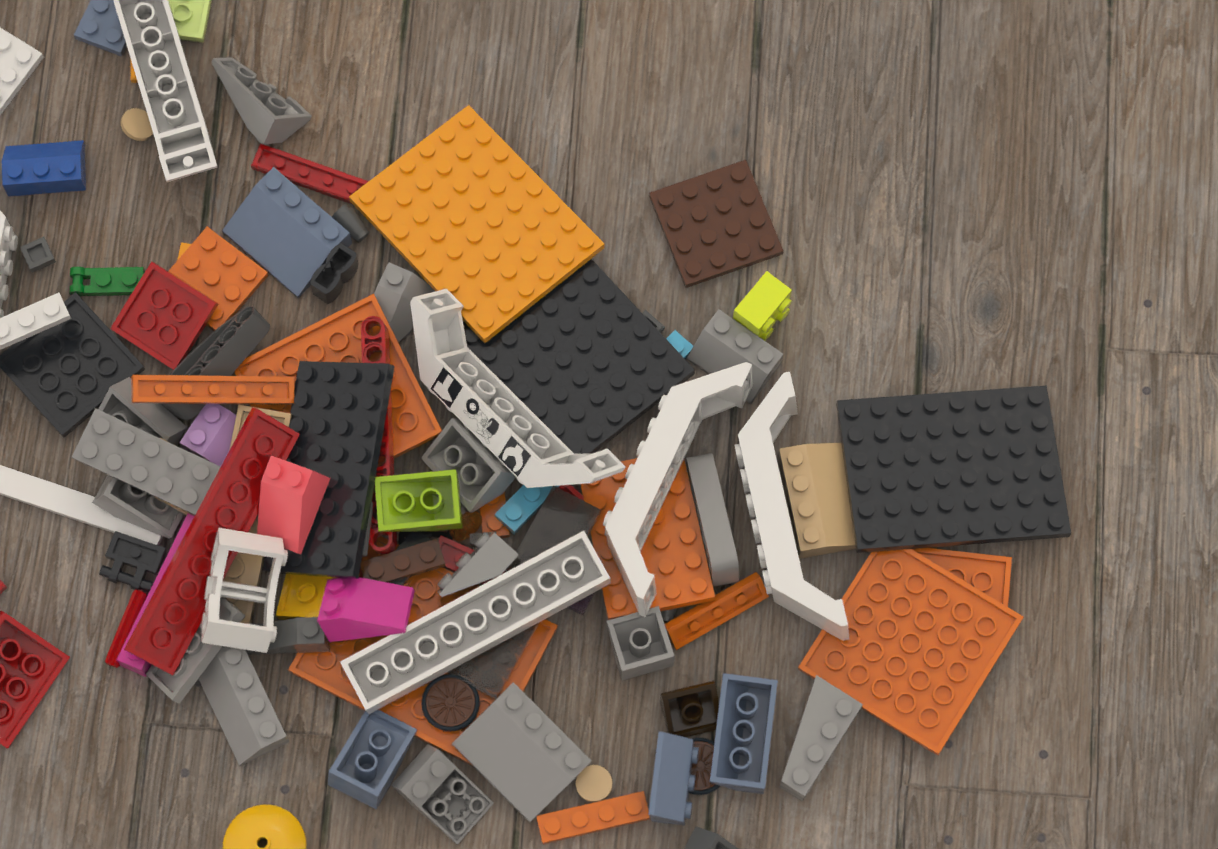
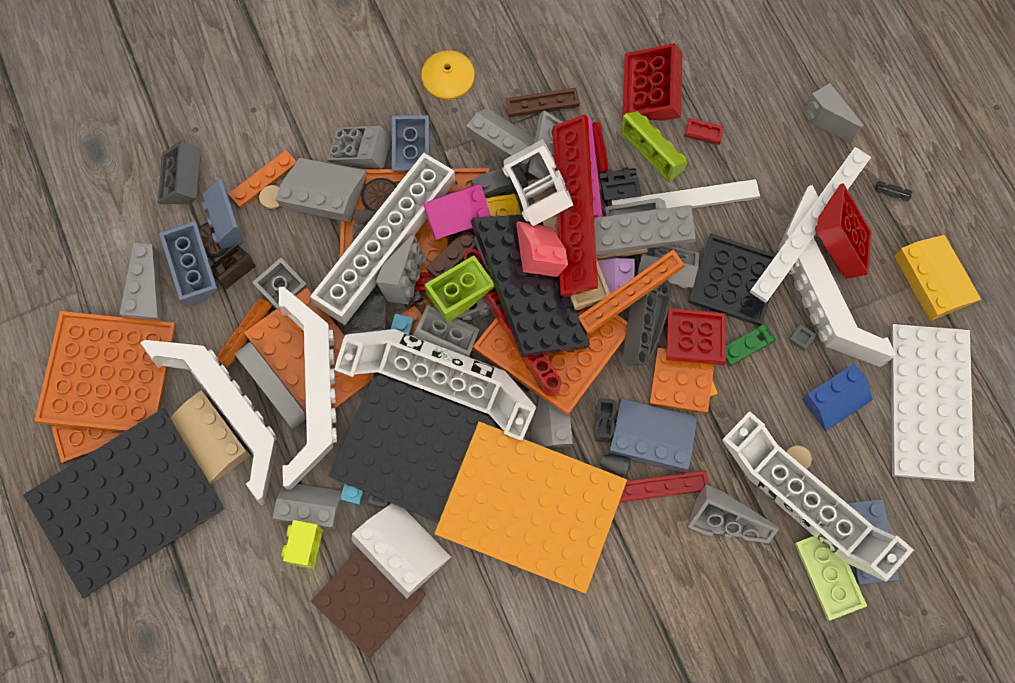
camera: 155 degrees right, 0 degrees up
(57, 586) = (653, 145): none -> lime slope
(162, 731) = (542, 102): none -> reddish brown plate
(650, 251) = (400, 548): none -> white slope

